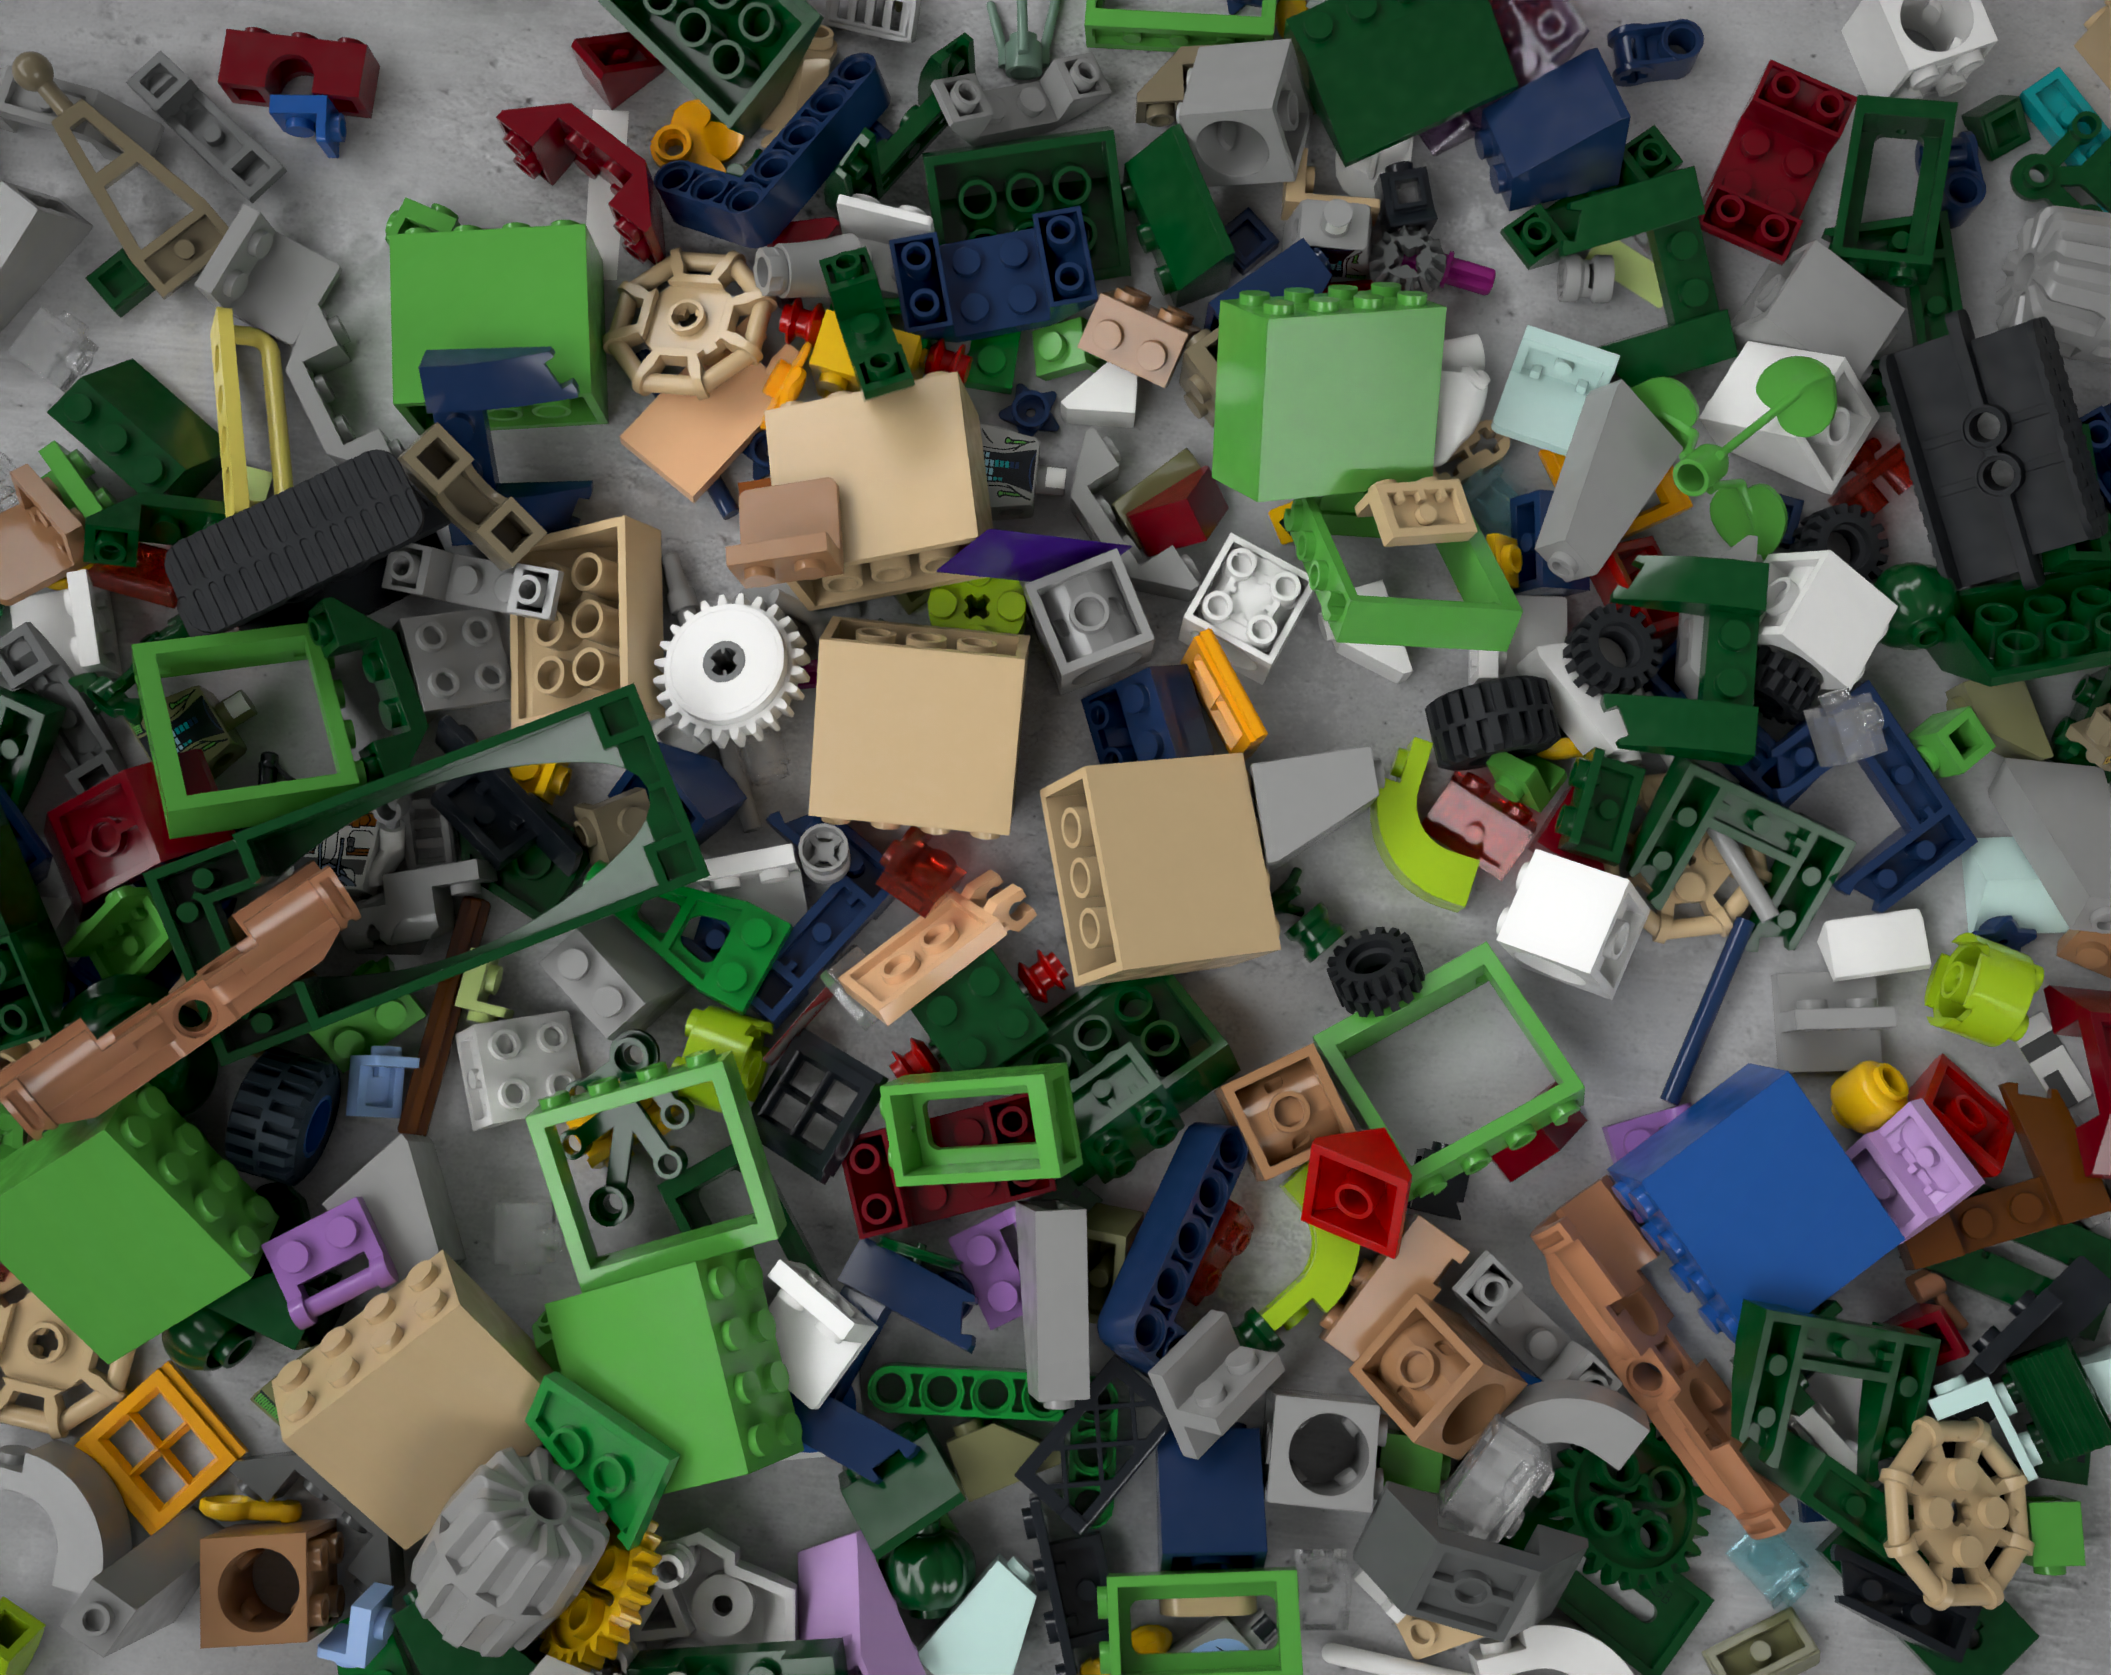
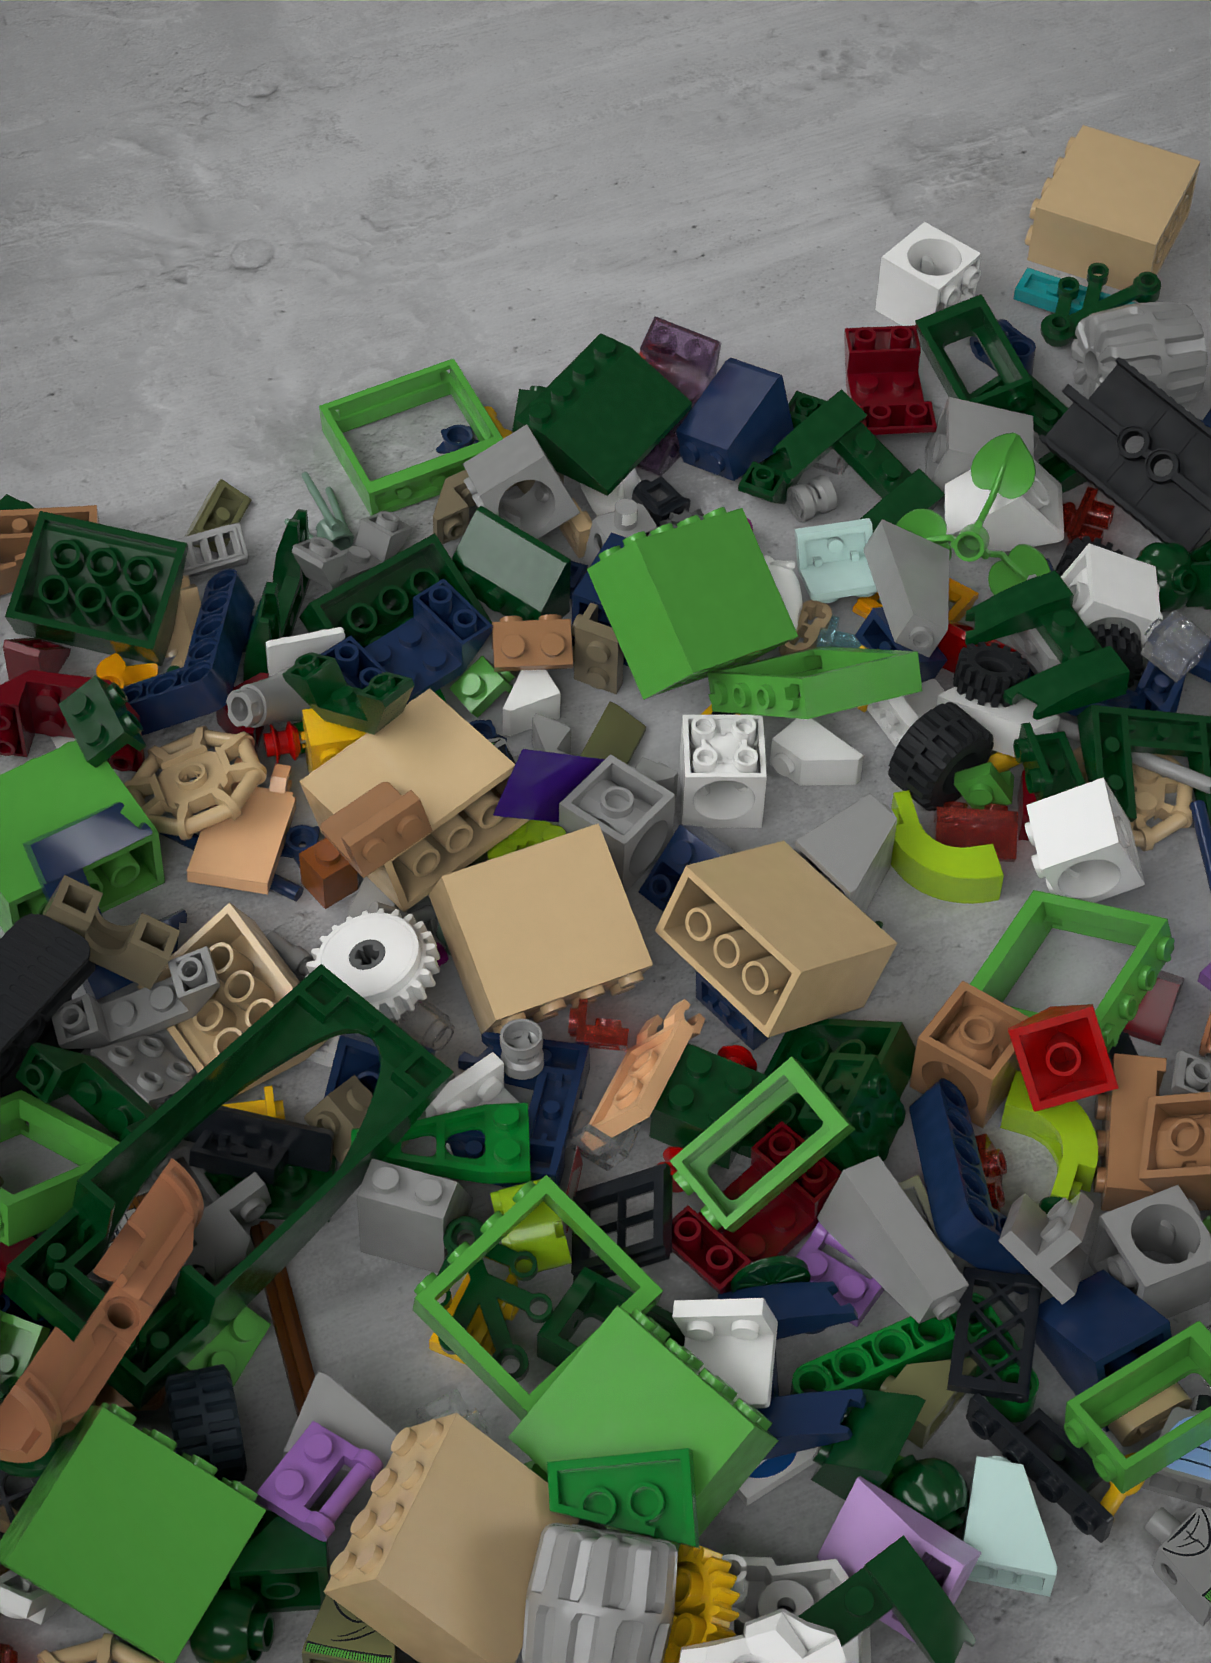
camera: 30 degrees left, 30 degrees down
(377, 1082) = (259, 1382): light blue bracket -> none
(475, 991) = (308, 1289): yellowish green bracket -> none
(515, 1064) = (362, 1323): white bracket -> none
(601, 220) = (101, 720): none -> dark green bracket
(786, 381) = (289, 775): light orange plate -> none
(1179, 514) = (633, 739): dark red slope -> none
(1223, 695) = (751, 802): light orange piece -> none
(1315, 932) = (911, 948): dark green wheel -> none
(1375, 971) = (971, 943): black tyre -> none
(1418, 511) = (801, 644): tan bracket -> none
(1632, 270) = (847, 487): yellowish green sticker -> none
(1645, 55) = (771, 353): dark blue piece -> none
(1998, 125) = (1017, 313): dark green slope -> none

